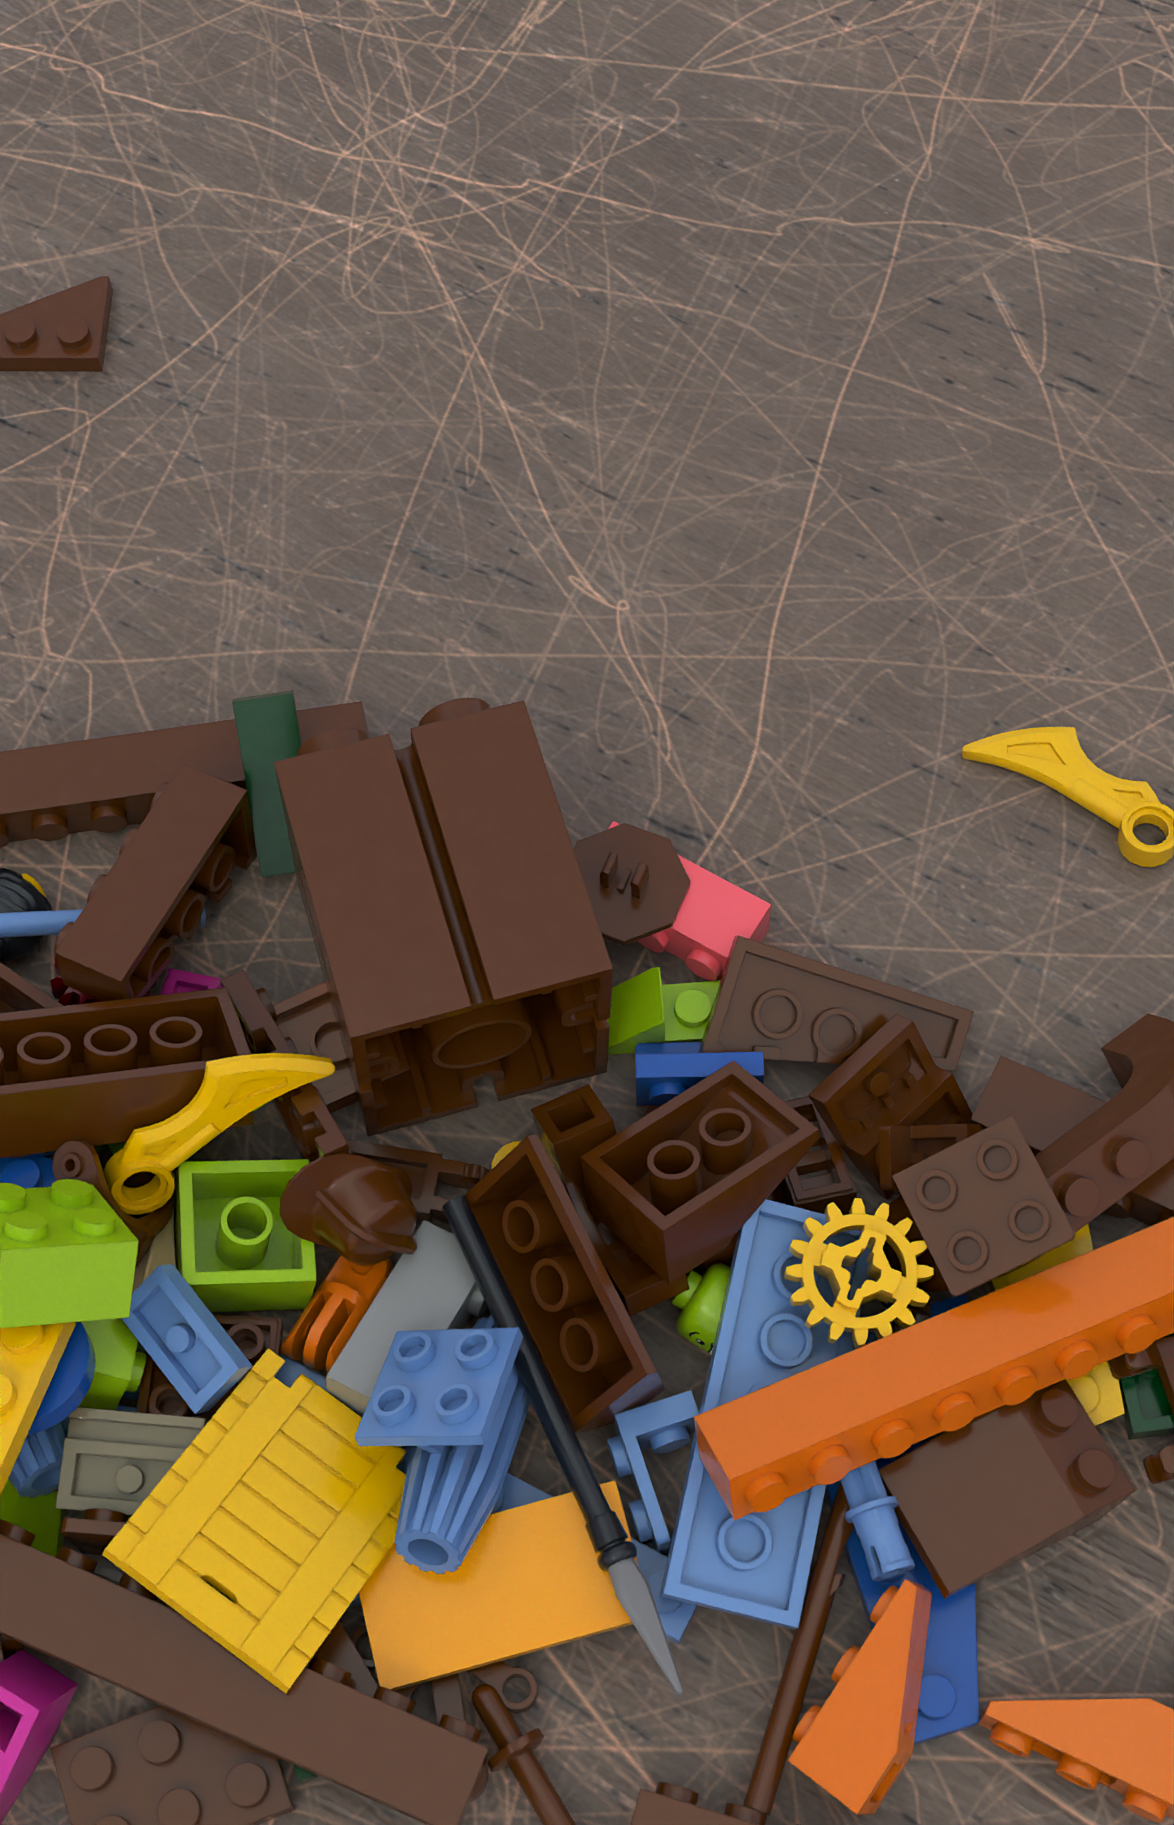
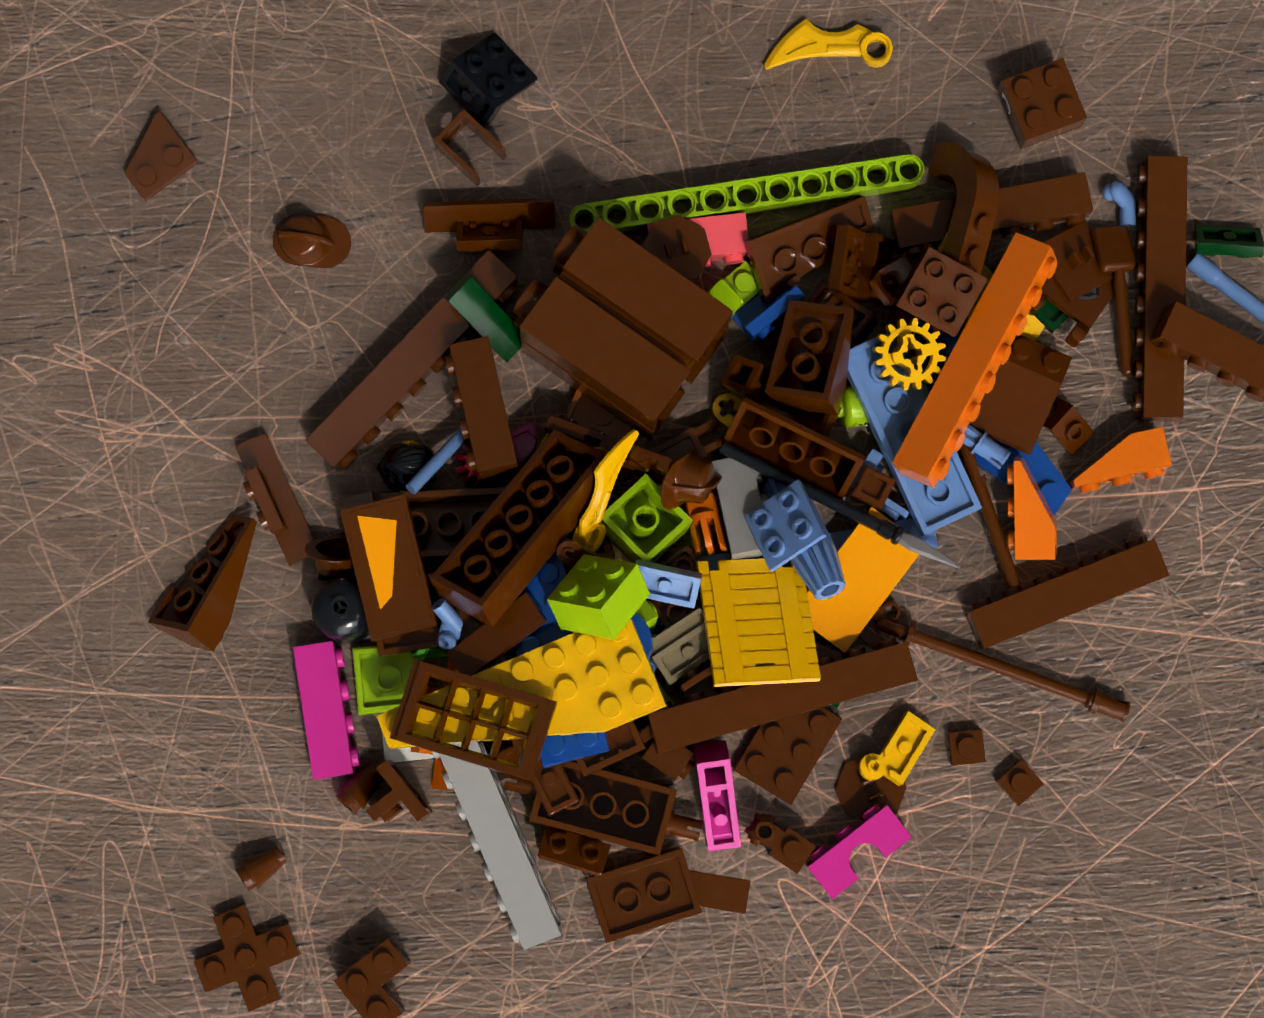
camera: 40 degrees left, 20 degrees up
(151, 549) = (311, 241): none -> reddish brown piece
(385, 667) = (489, 223): none -> reddish brown bracket
(474, 540) = (452, 129): none -> reddish brown piece
(556, 500) = (486, 78): none -> black bracket
(640, 1450) = (873, 487): none -> reddish brown tile
(835, 895) = (760, 188): none -> lime beam
(1047, 1609) = (1068, 427): none -> reddish brown bracket

